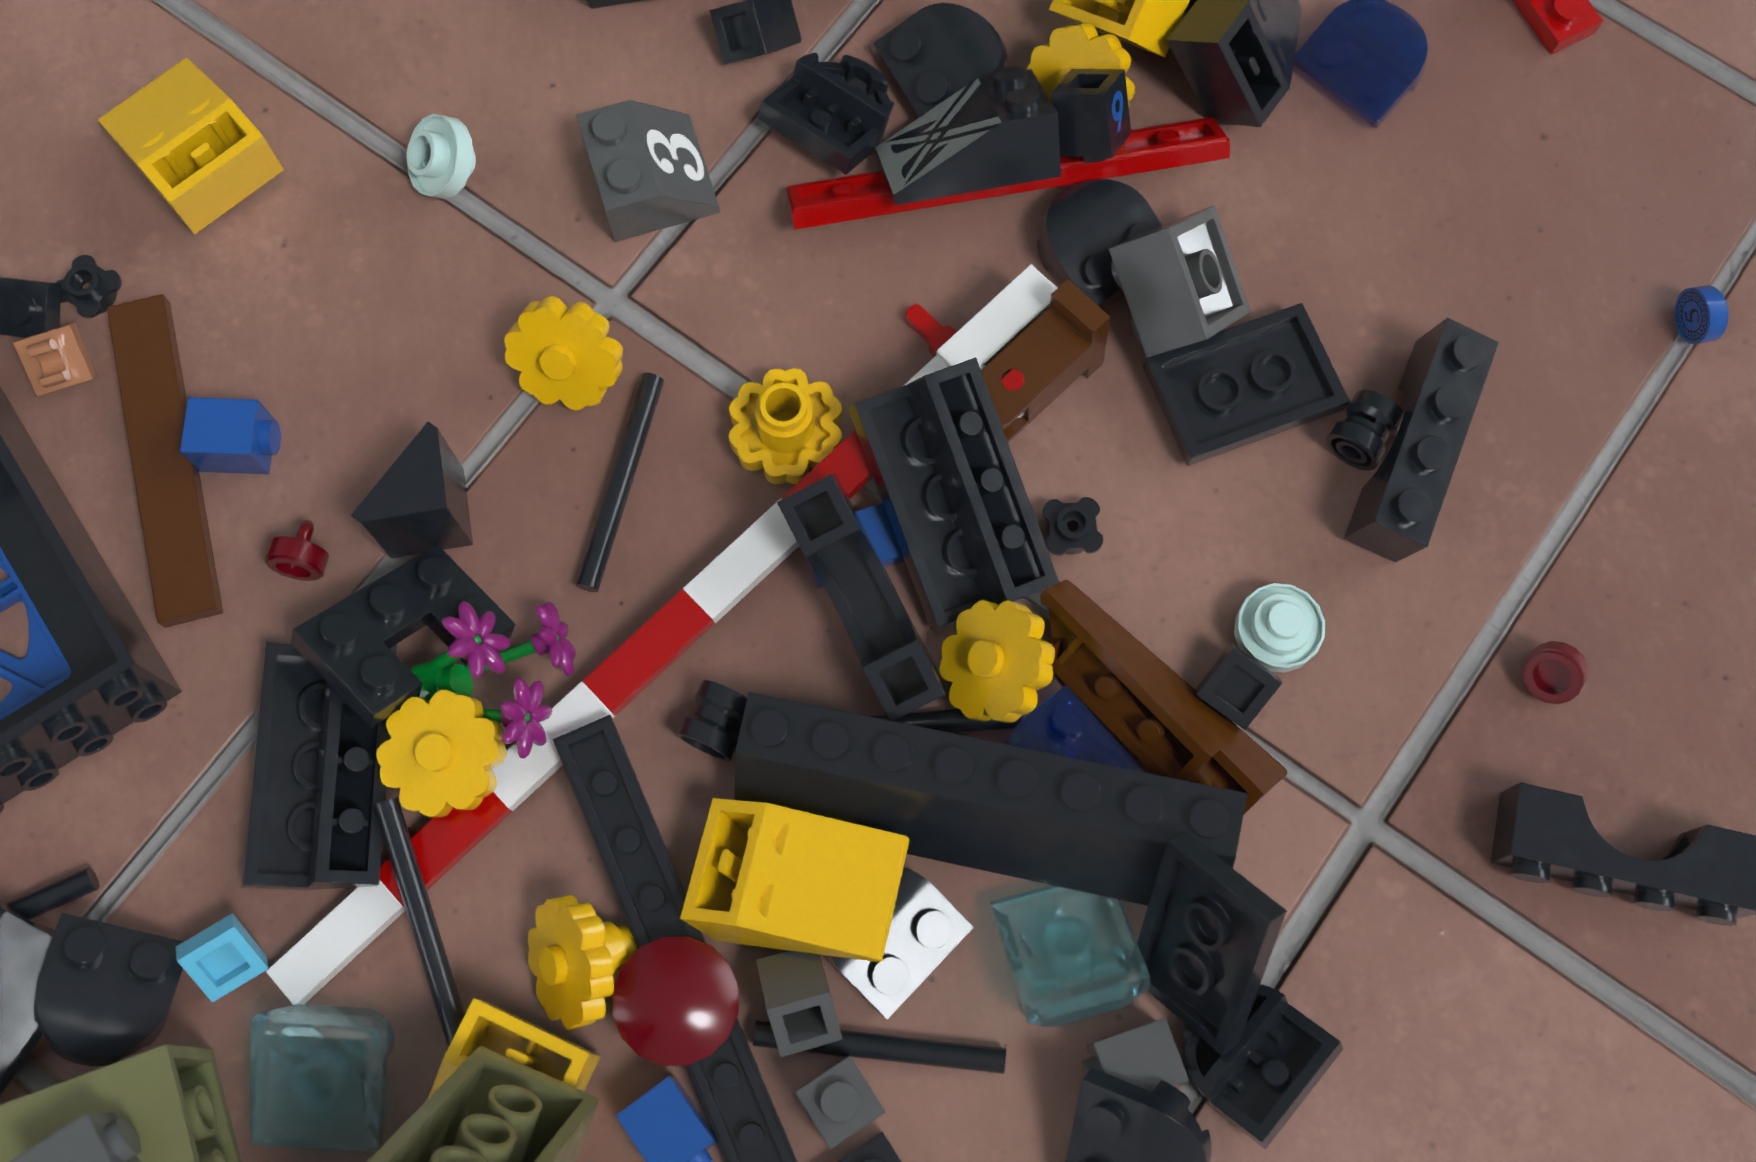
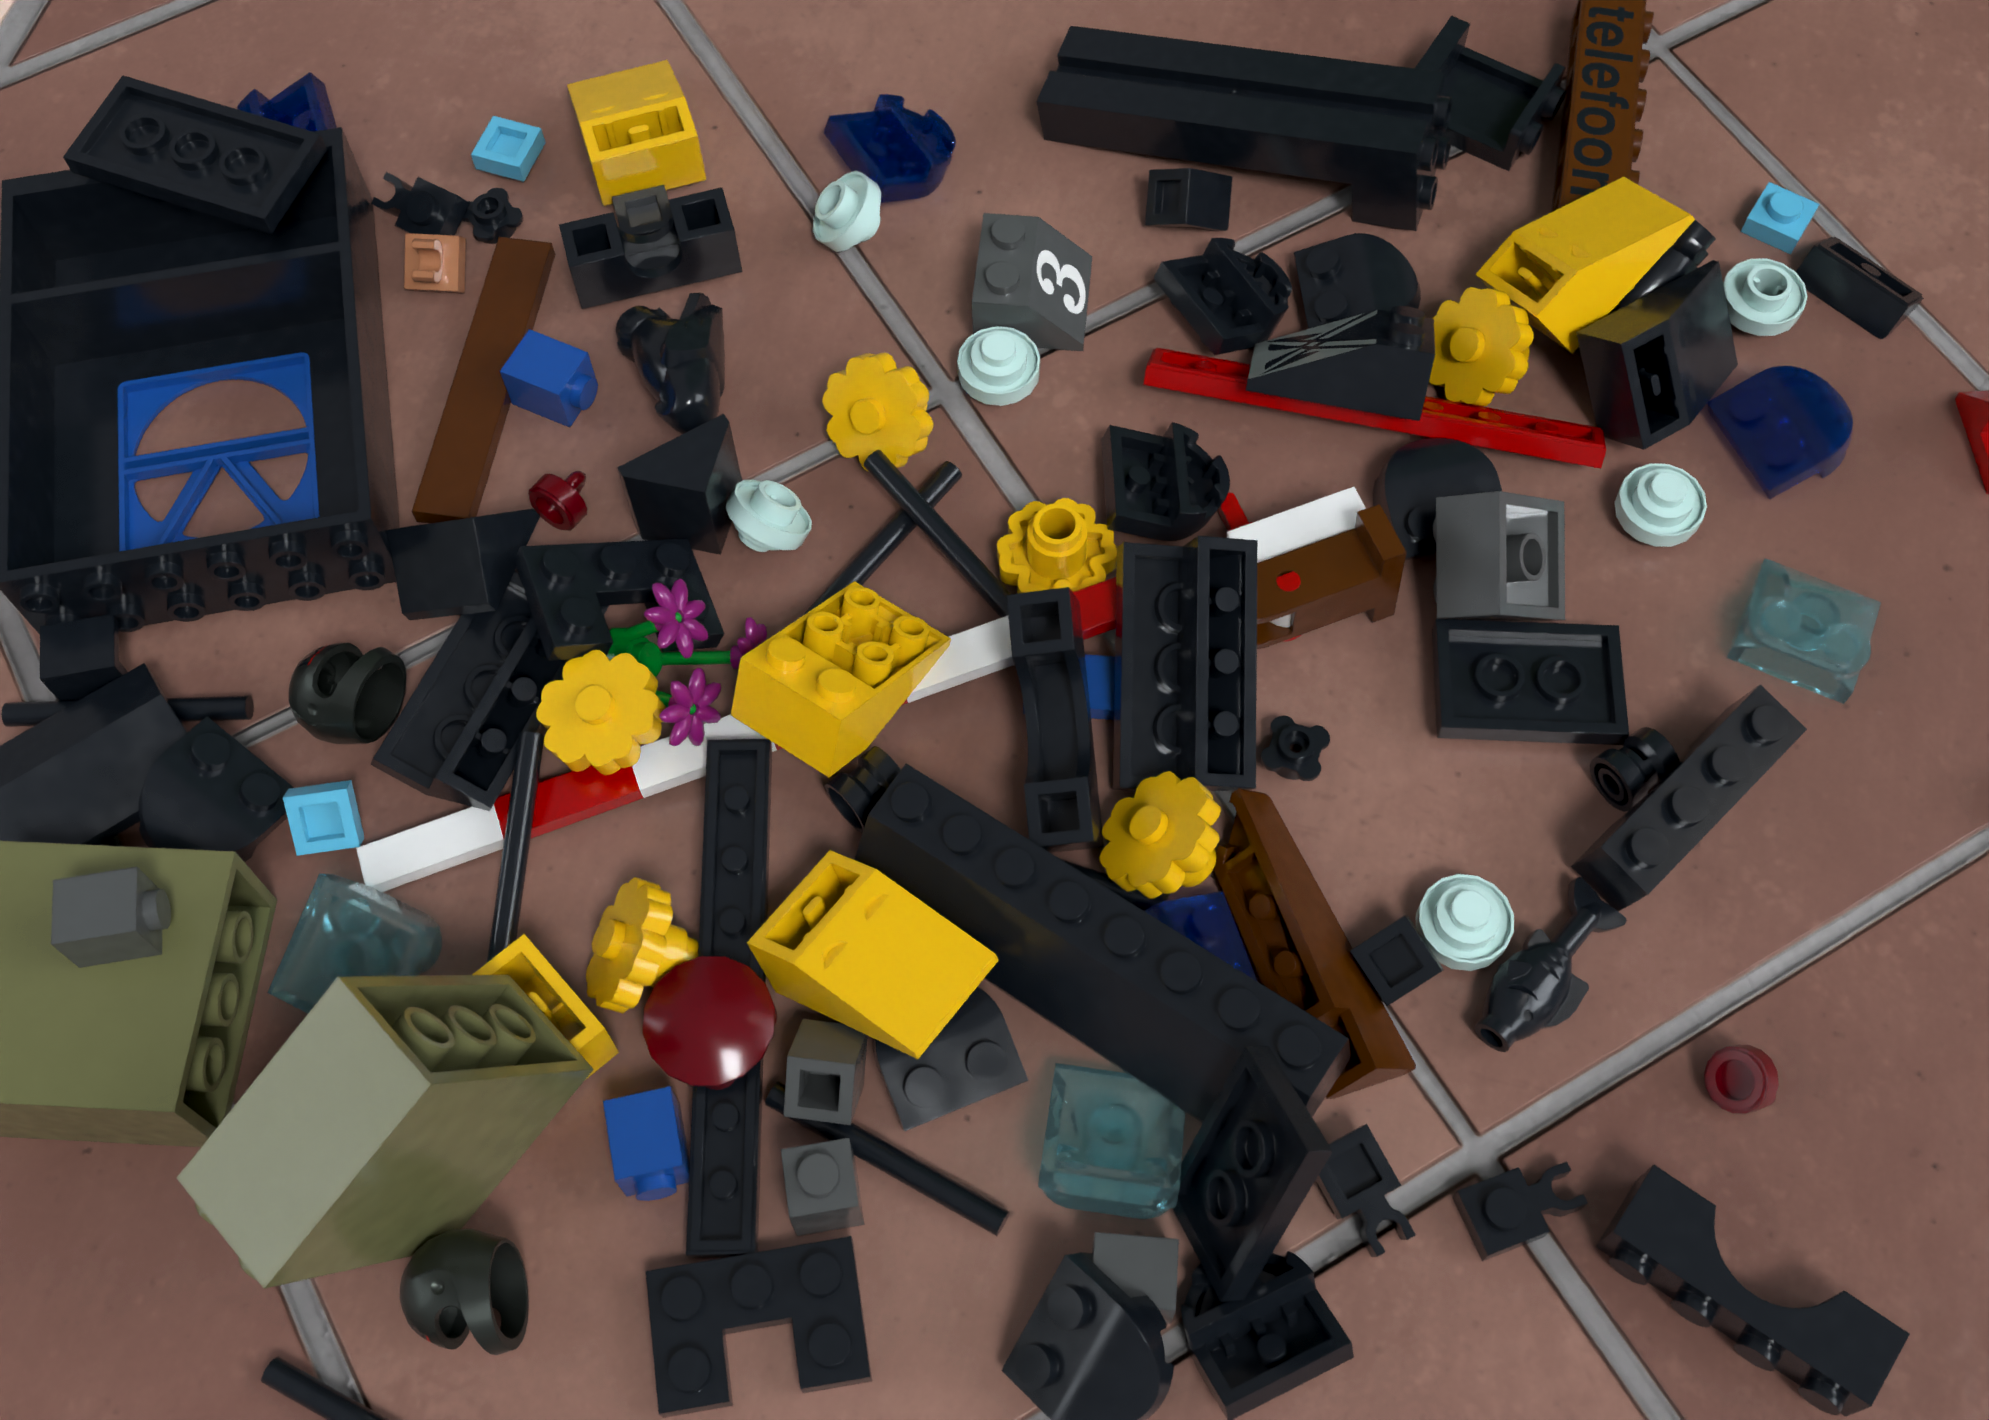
camera: 25 degrees right, 10 degrees down
(70, 210) = (508, 148): none -> medium azure plate
(185, 832) = (346, 694): none -> pearl dark grey helmet
(232, 657) = (458, 563): none -> black slope
(243, 233) = (642, 210): none -> black plate
(303, 250) = (689, 249): none -> black arch
(347, 371) = (678, 359): none -> black animal
(453, 71) = (894, 147): none -> clear blue slope
(505, 494) = (768, 516): none -> light aqua plate
(644, 630) = (835, 676): none -> yellow slope
(652, 259) = (998, 365): none -> light aqua plate
(677, 450) = (938, 531): none -> black bar
(850, 319) = (1160, 483): none -> black slope
(1092, 113) = (1472, 373): black brick -> none
(1291, 172) = (1660, 505): none -> light aqua plate
(1293, 890) = (1357, 1180): none -> black plate
(1358, 656) = (1537, 983): none -> black animal
(1412, 865) = (1509, 1213): none -> black plate
(1453, 242) = (1805, 631): none -> clear light blue slope

